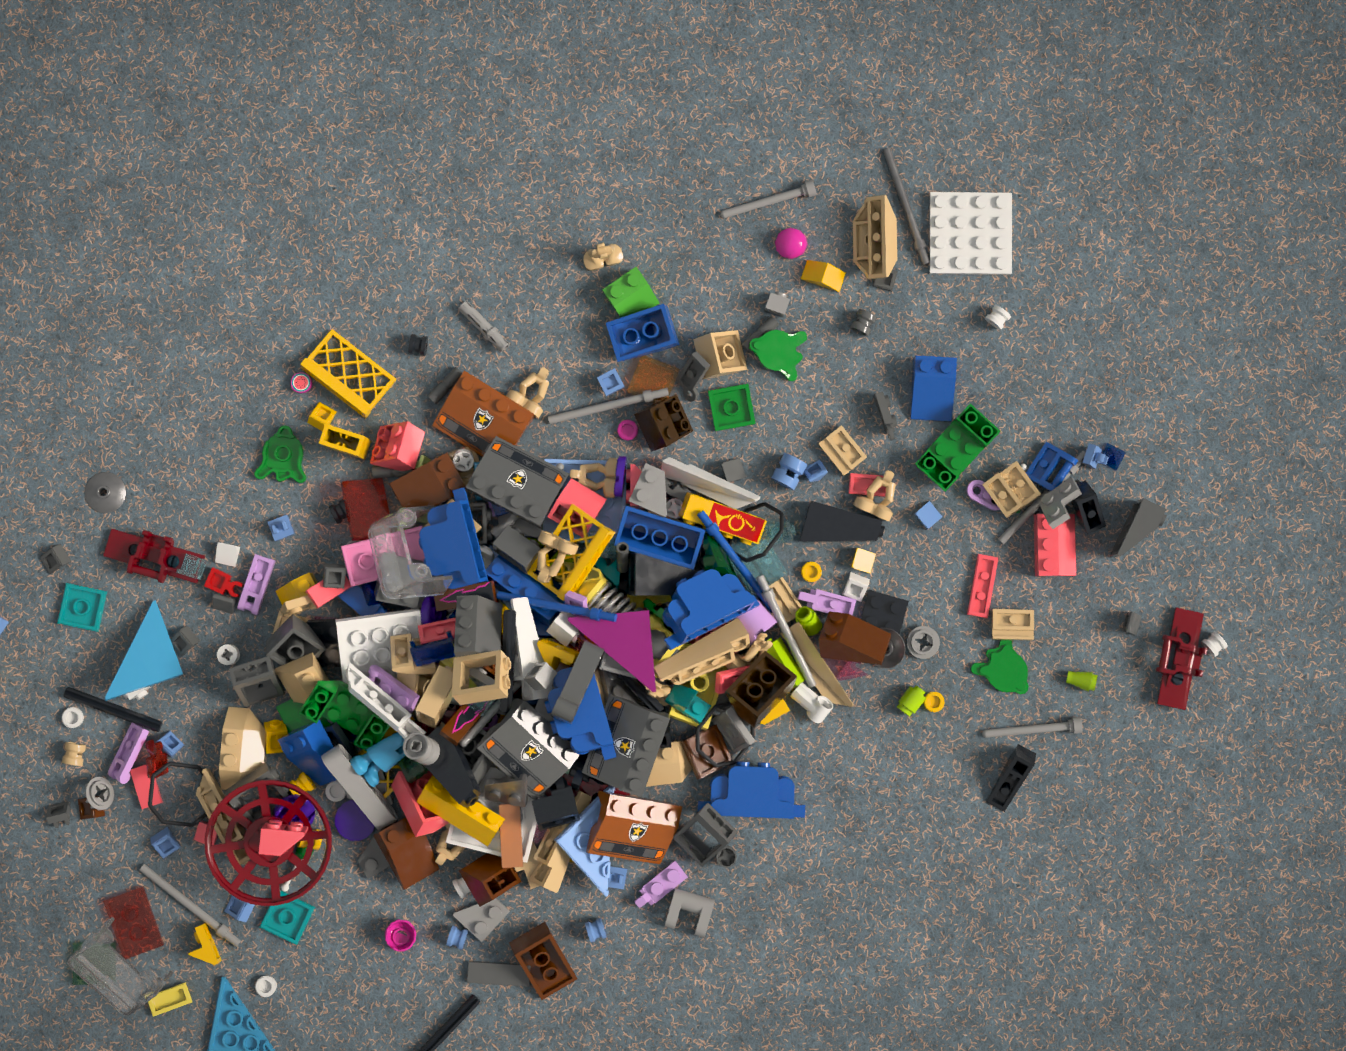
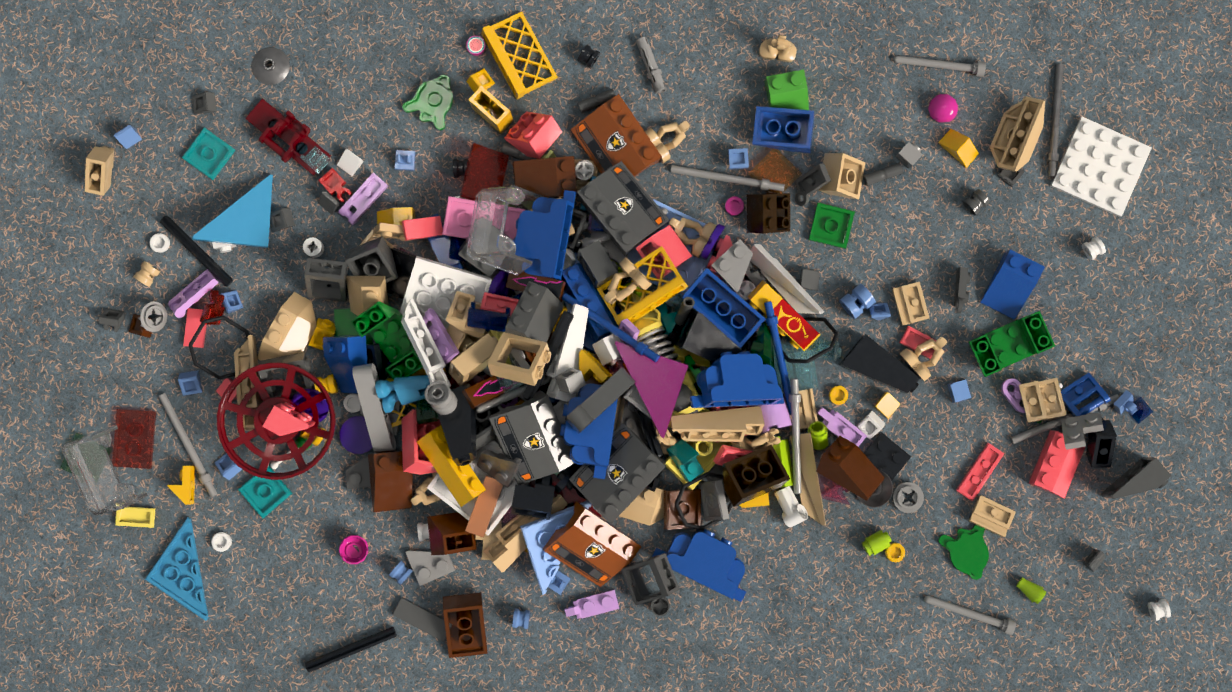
camera: 30 degrees right, 0 degrees up
(334, 575) = (431, 219): dark grey slope -> none
(692, 903) = (614, 633): light grey connector -> none
(778, 351) = (892, 195): green tile -> none
(1012, 777) = (935, 646): black slope -> none
(1187, 659) = (1129, 612): dark red piece -> none

